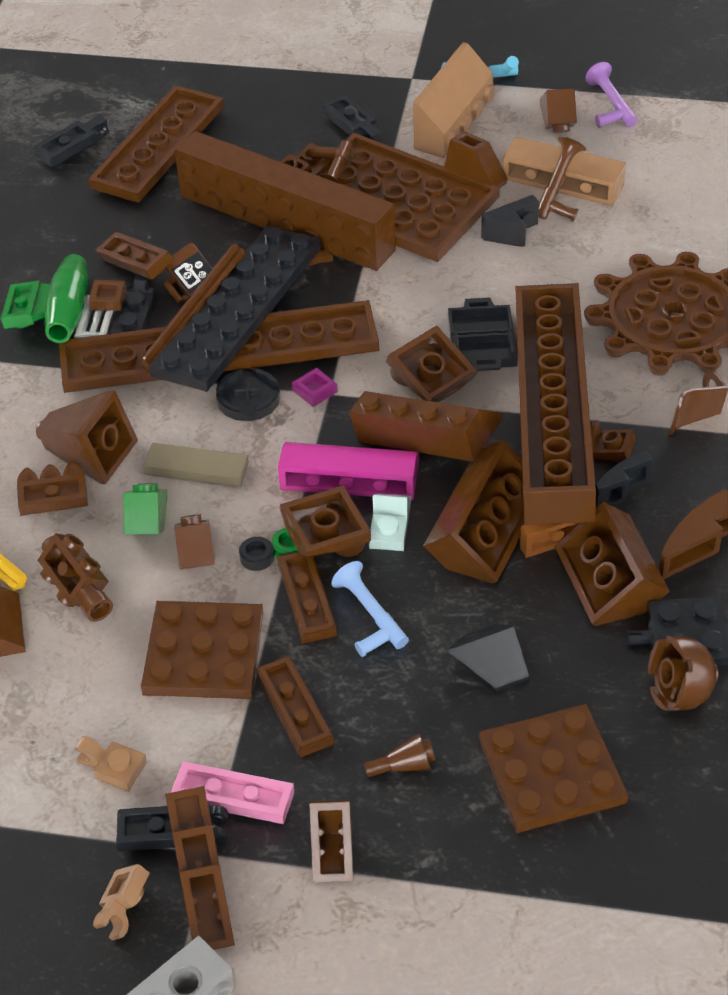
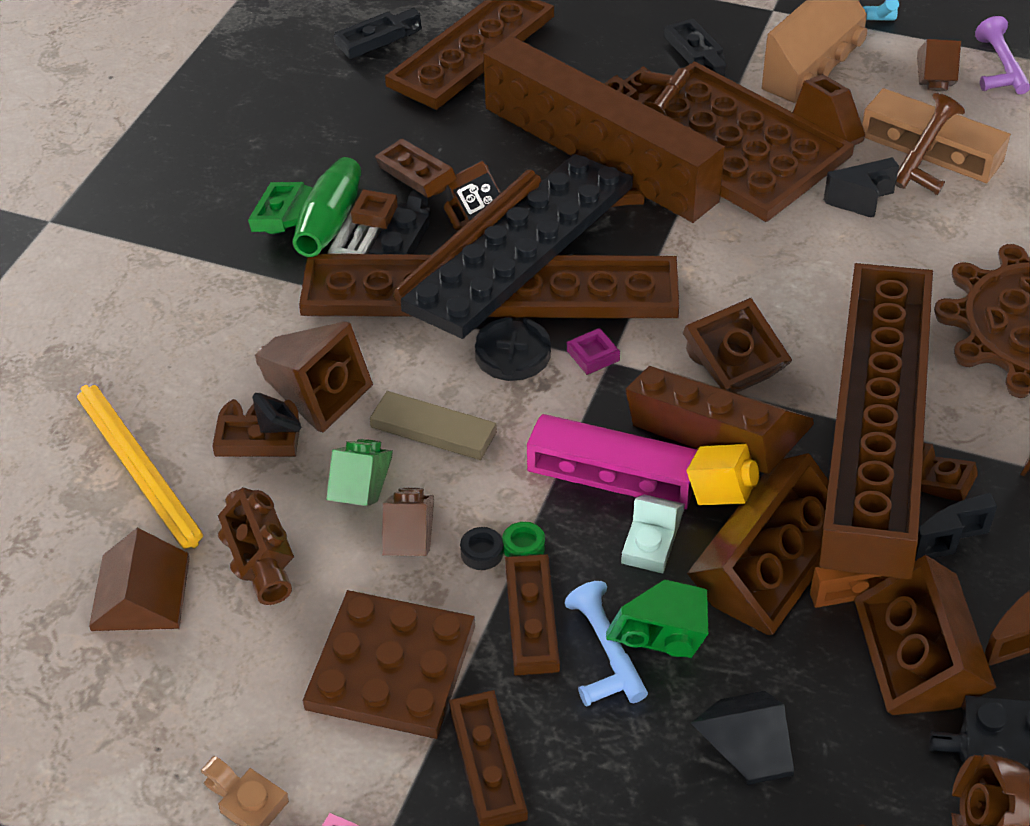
camera: 10 degrees right, 0 degrees up
(65, 475) = (274, 415): none -> black slope
(326, 524) = (571, 526): reddish brown slope -> none
(411, 582) = (664, 619): none -> green slope
(438, 467) = (722, 474): none -> yellow brick
(484, 334) = (808, 316): black piece -> none

